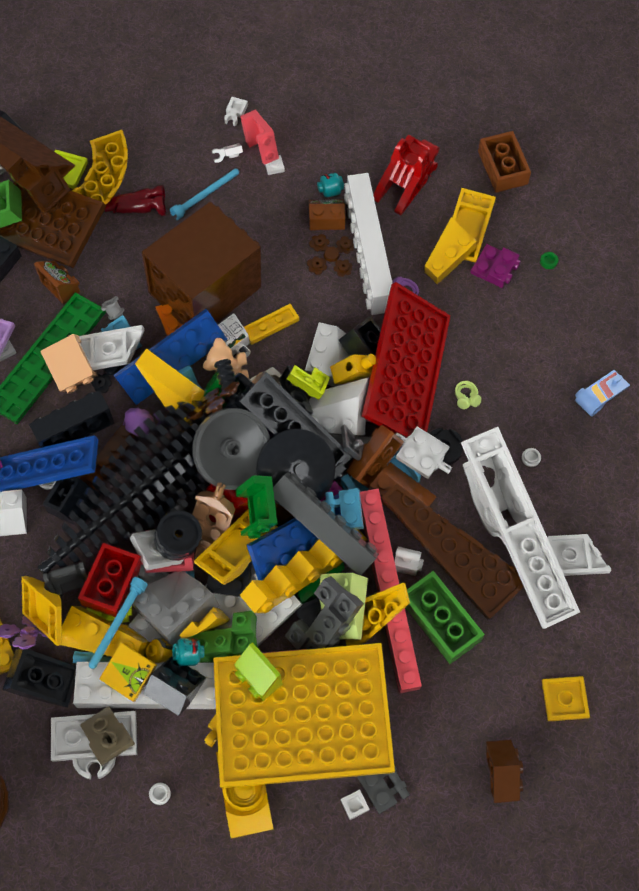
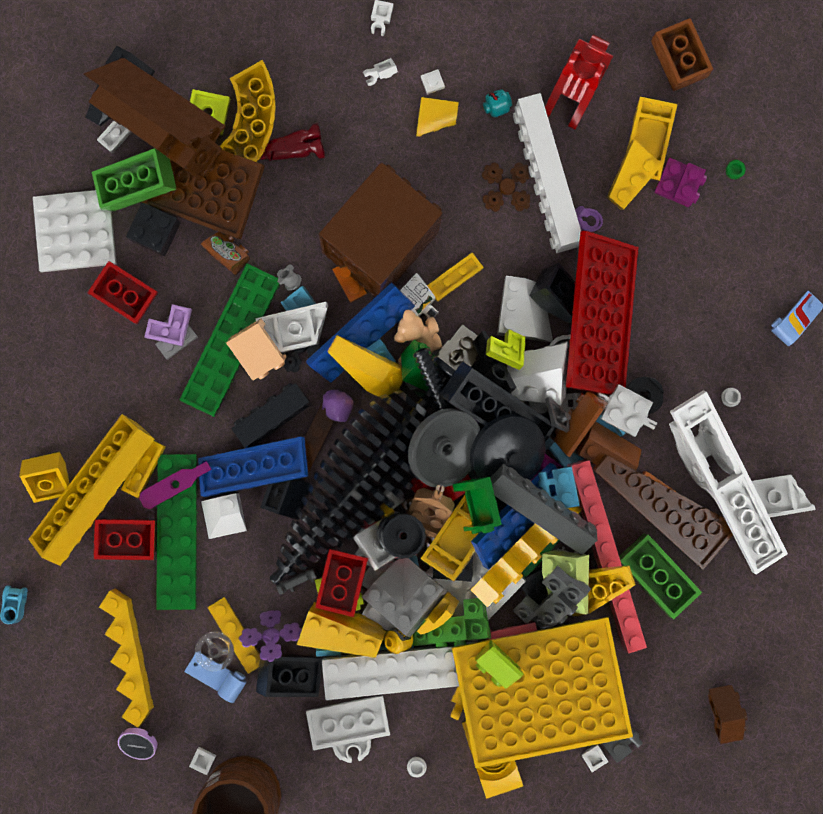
camera: 10 degrees left, 20 degrees up
(42, 608) = (281, 616): yellow slope -> none
(106, 735) = (362, 727): dark tan piece -> none
(128, 672) = (374, 670): yellow tile -> none
(137, 586) = (368, 588): medium azure piece -> none
(174, 685) = (419, 678): black slope -> none
(180, 210) = (339, 150): medium azure piece -> none
(187, 651) = (427, 646): teal head -> none
(213, 401) = (420, 399): reddish brown plant -> none
(259, 132) = (408, 44): coral panel -> none
(273, 190) = (435, 115): none -> yellow slope
(327, 214) = (497, 137): dark orange slope -> none
(353, 368) = (558, 325): yellow torso -> none
(408, 561) = (621, 521): white brick -> none
(463, 401) = (660, 344): yellowish green piece -> none
(565, 698) = (777, 637): yellow tile -> none

